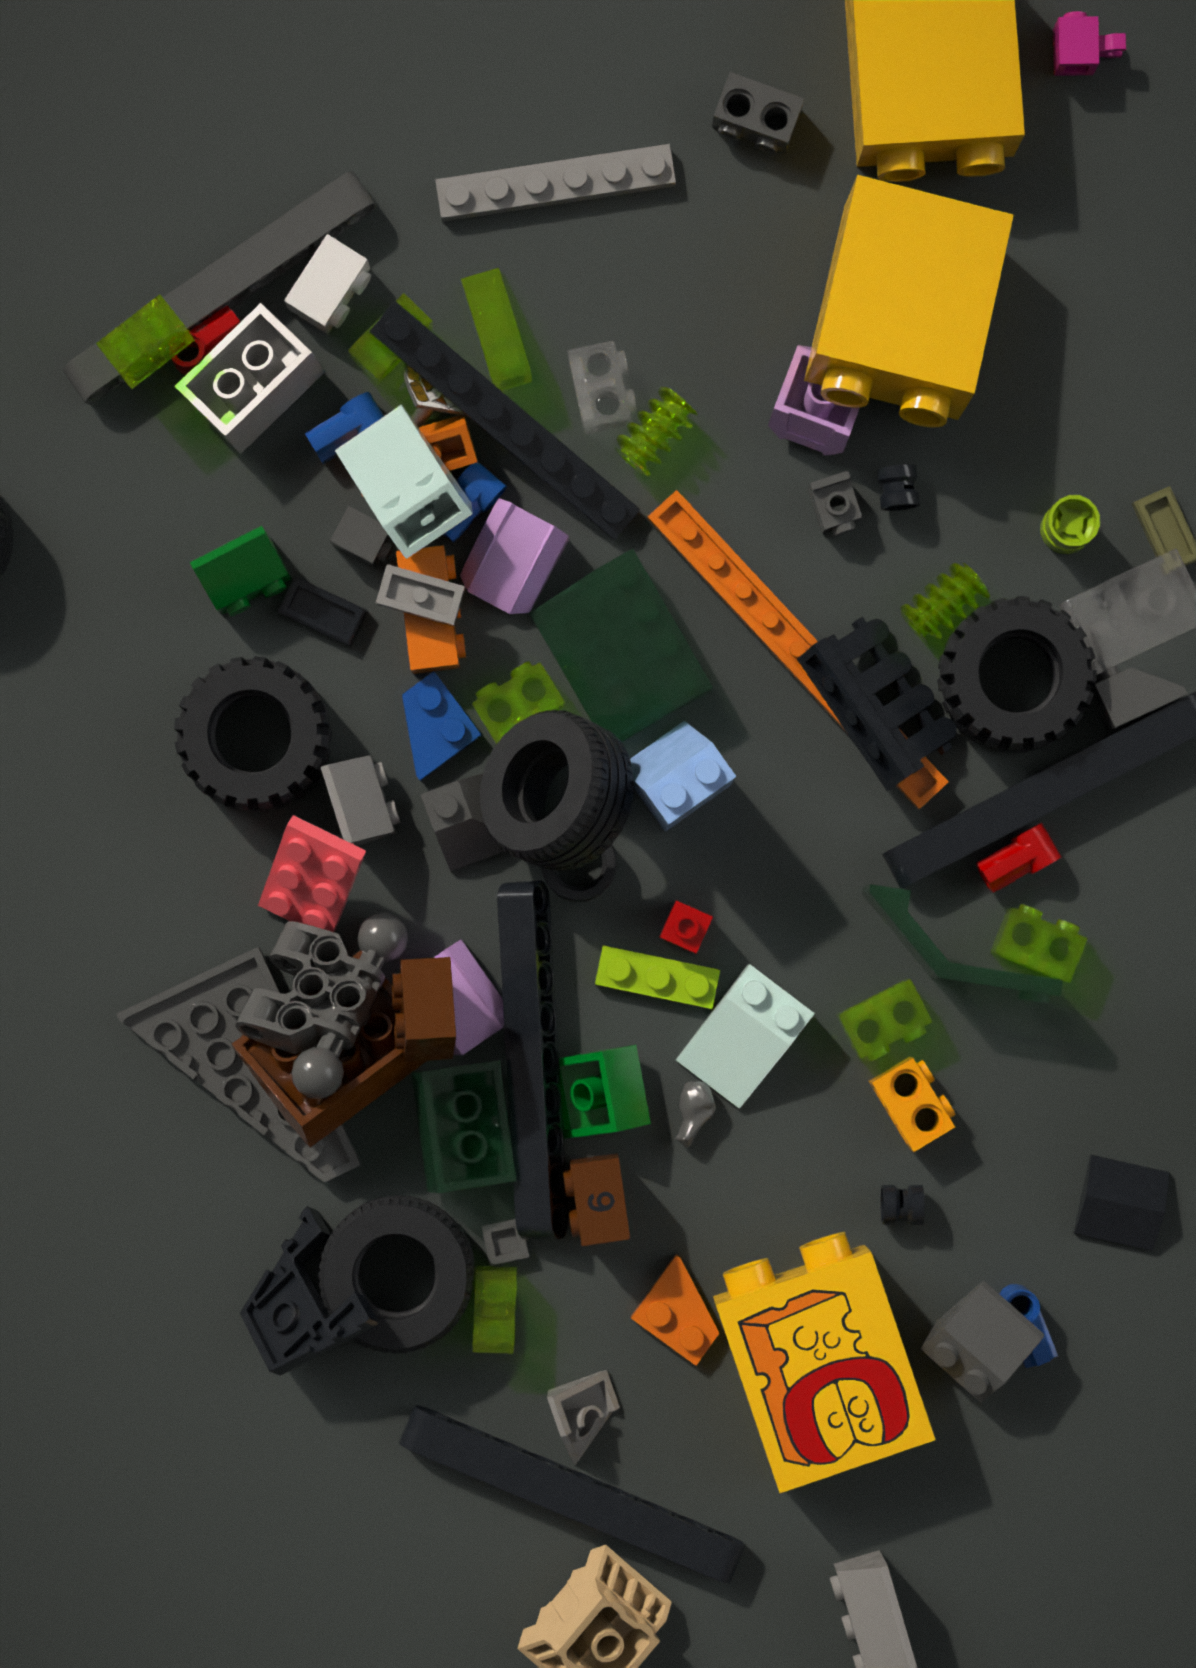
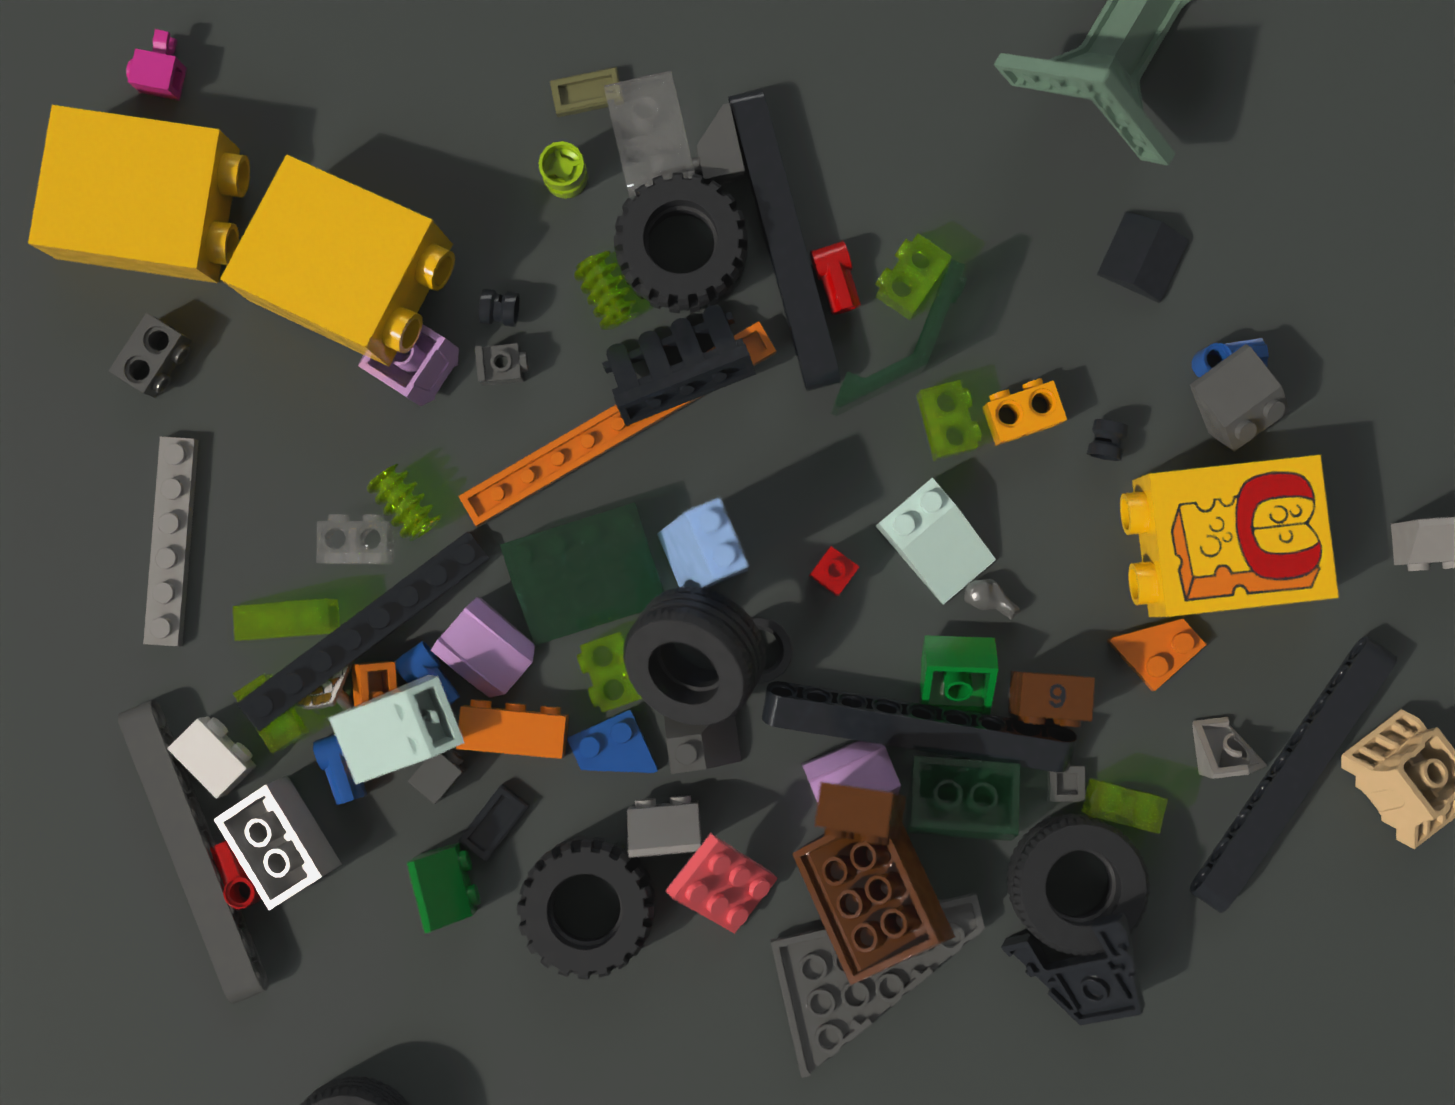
camera: 70 degrees left, 0 degrees up
(145, 341) = (222, 929): clear neon green brick -> none
(326, 1021) = (853, 899): dark grey connector -> none
(420, 595) = (499, 736): light grey plate -> none
(657, 977) = (870, 604): lime plate -> none

